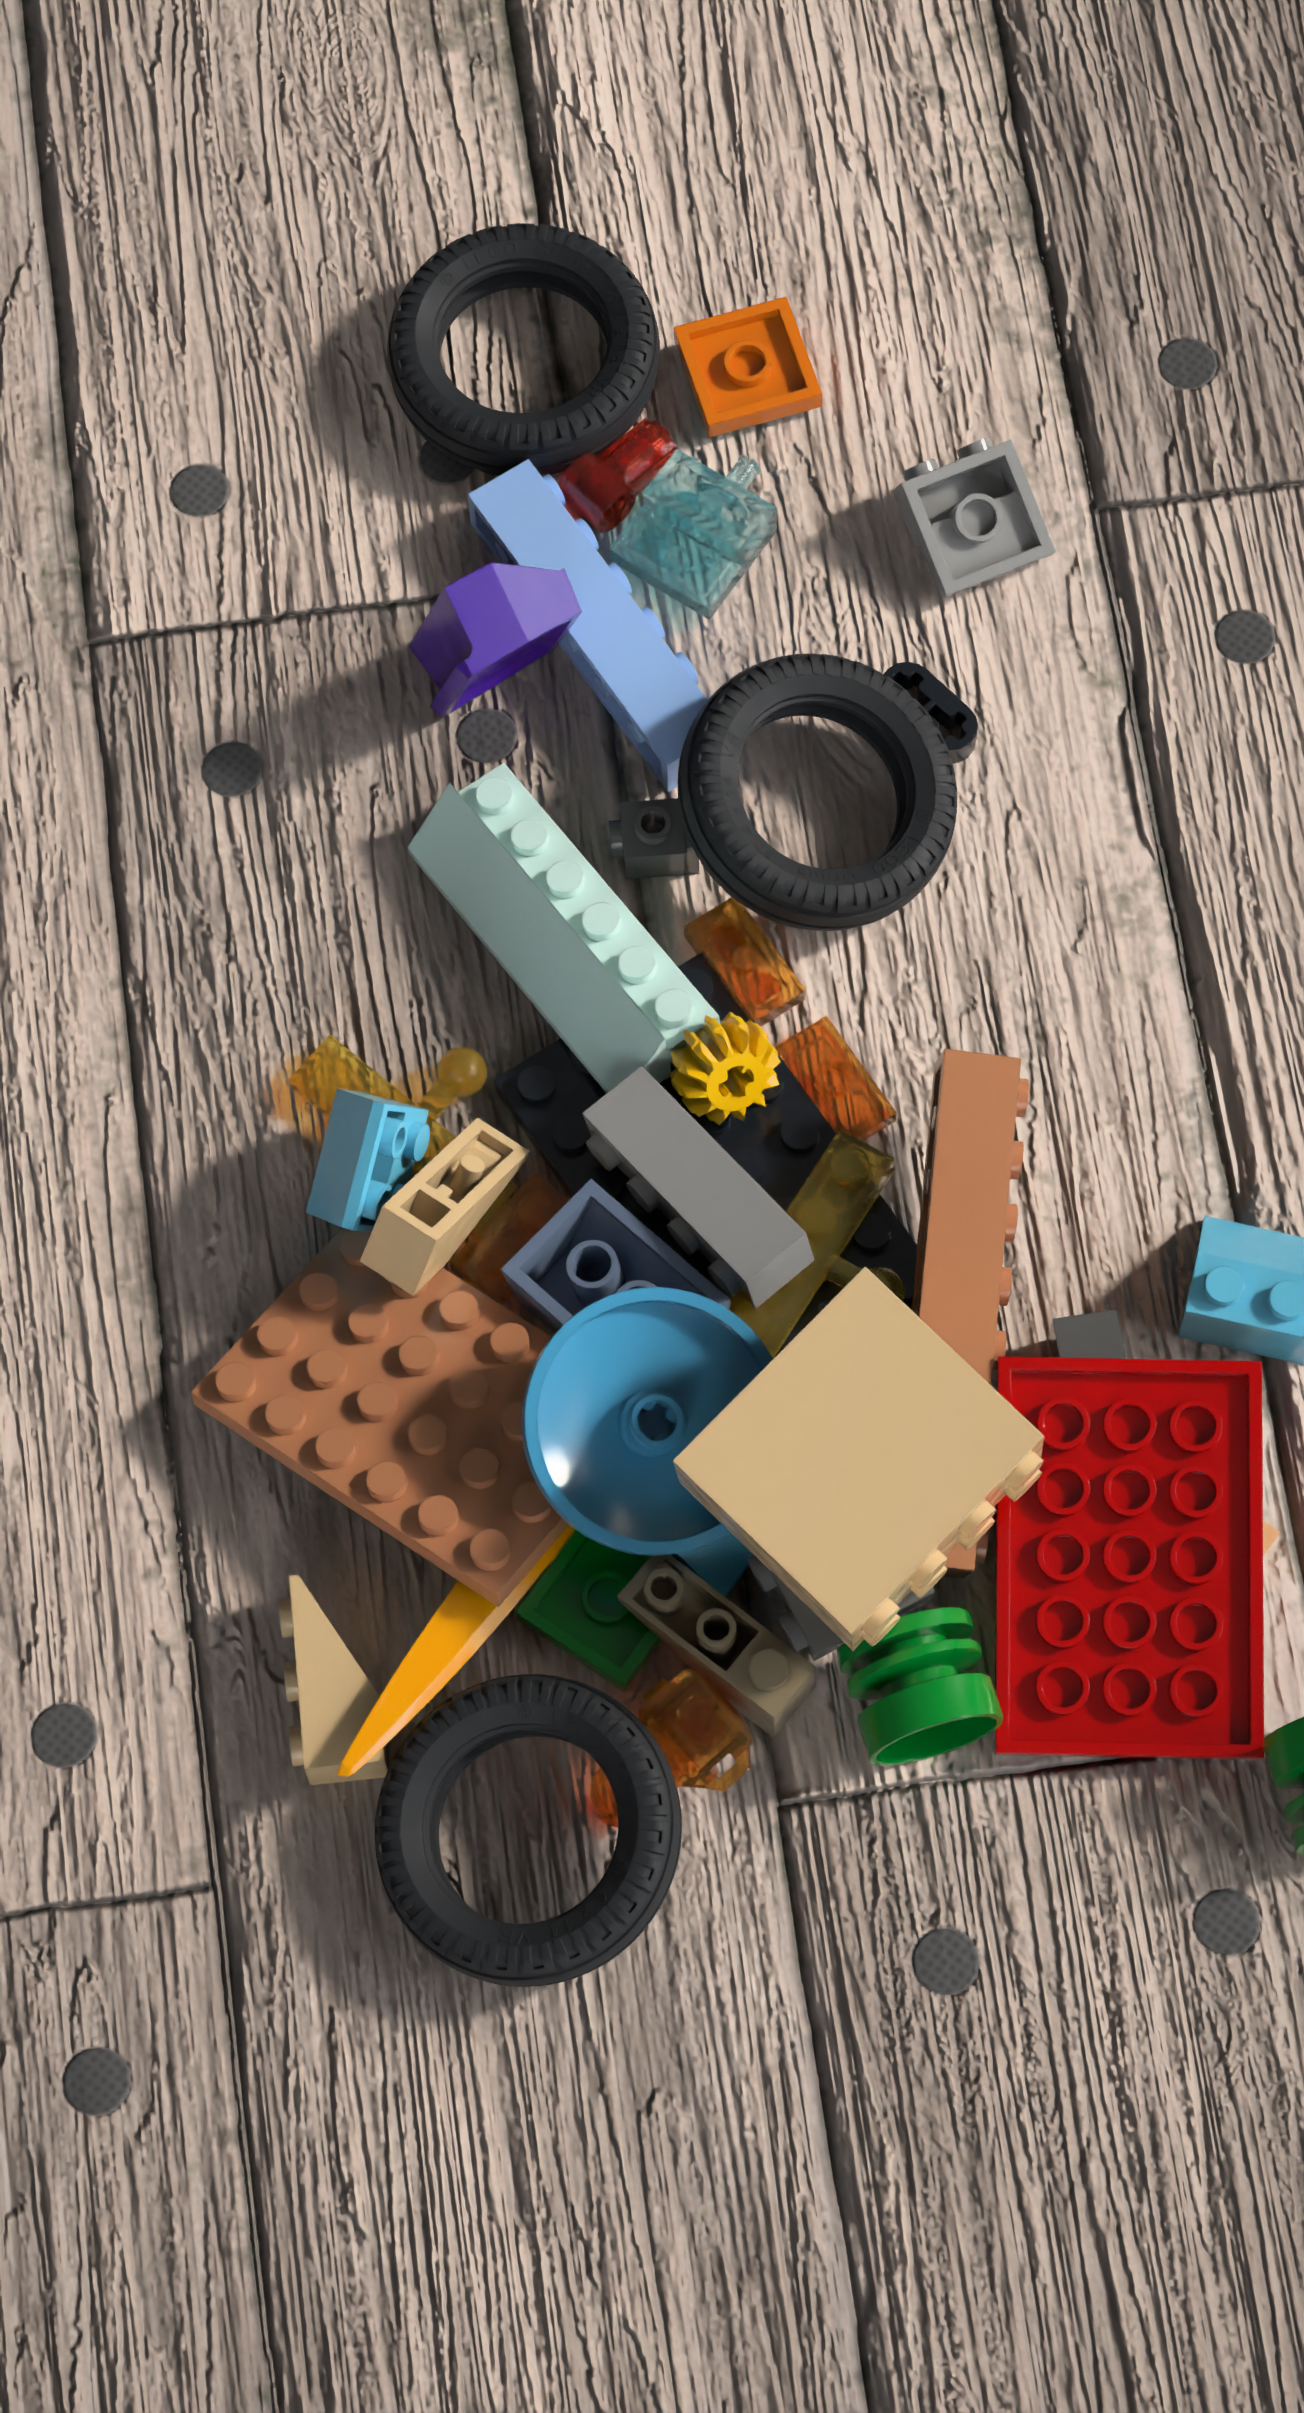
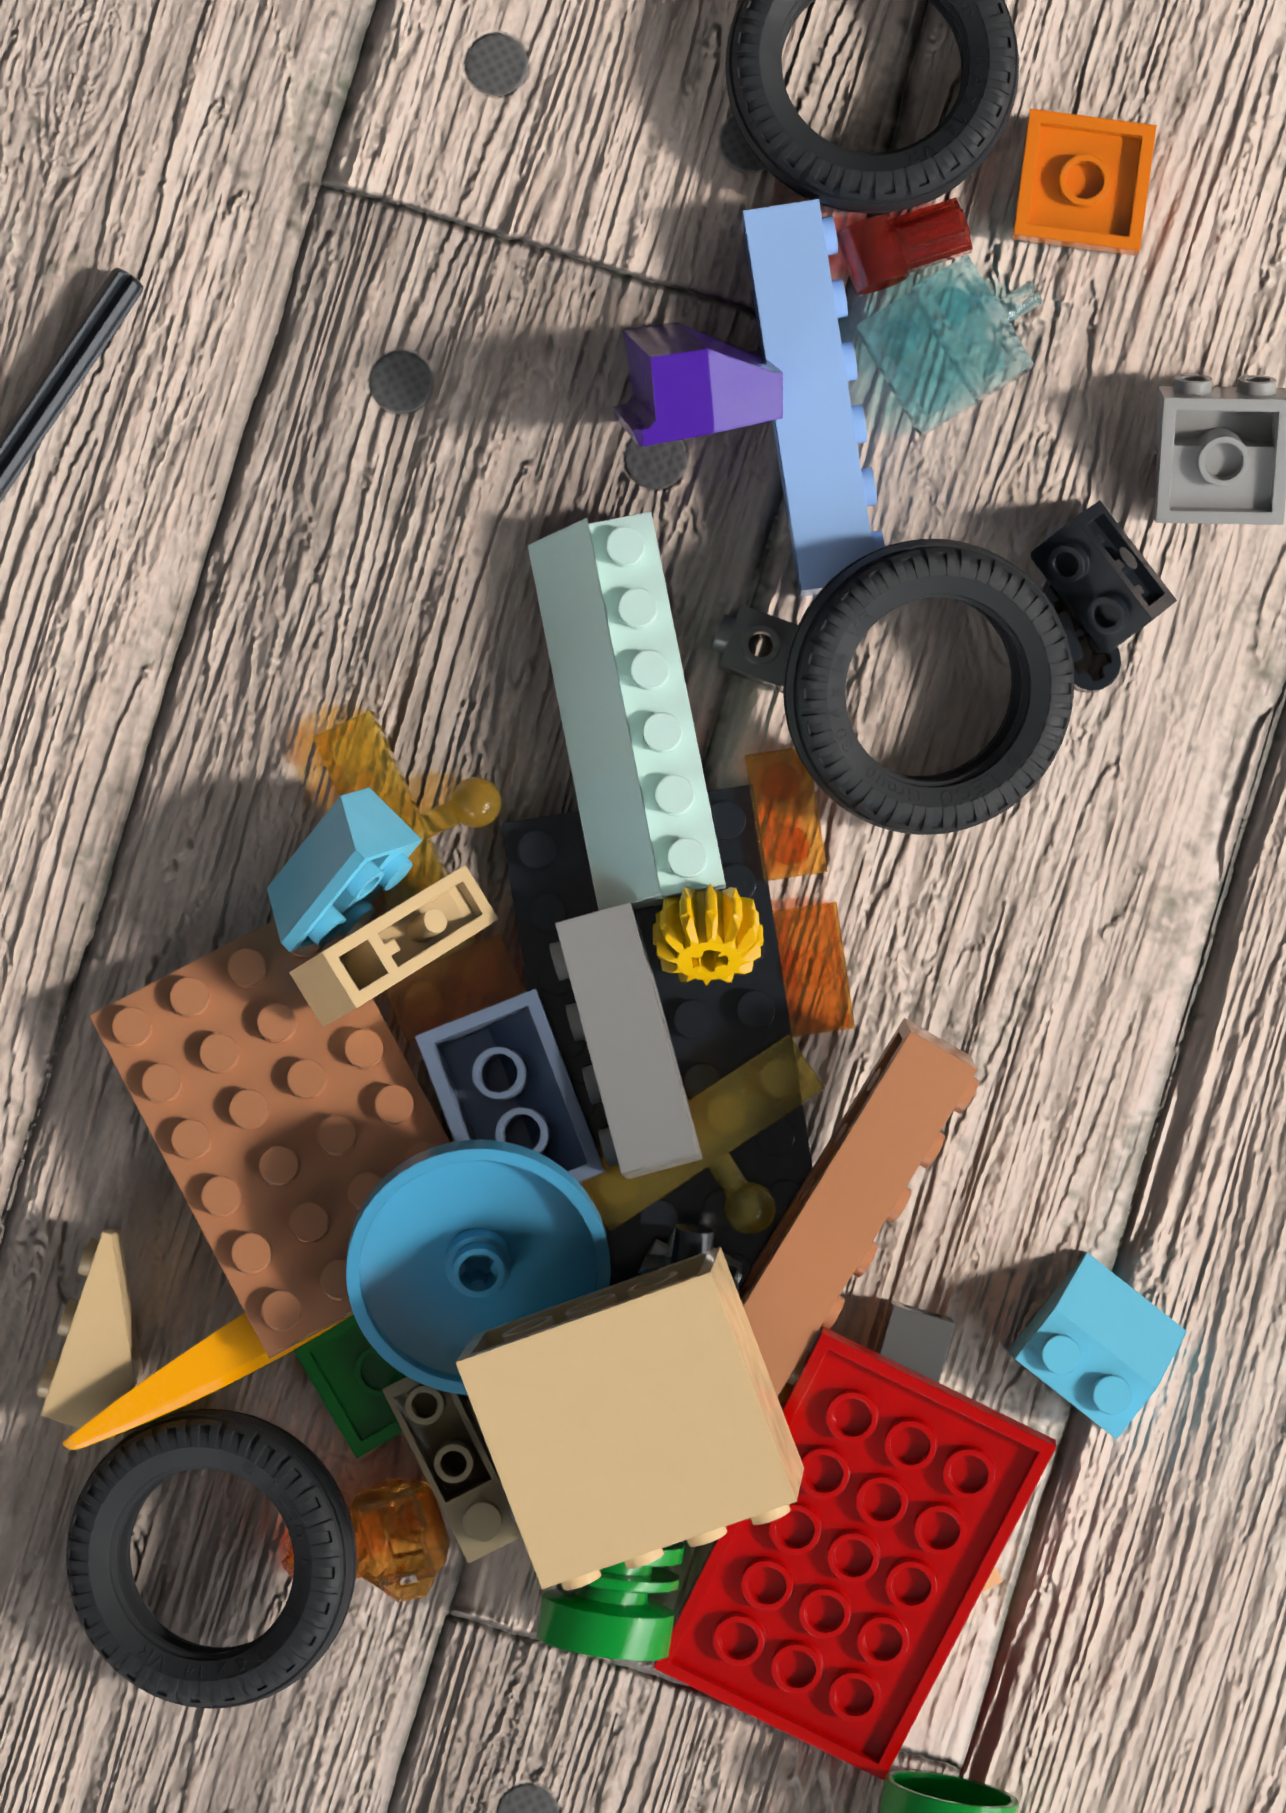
camera: 20 degrees right, 20 degrees up
(922, 655) = (1102, 577): none -> black bracket

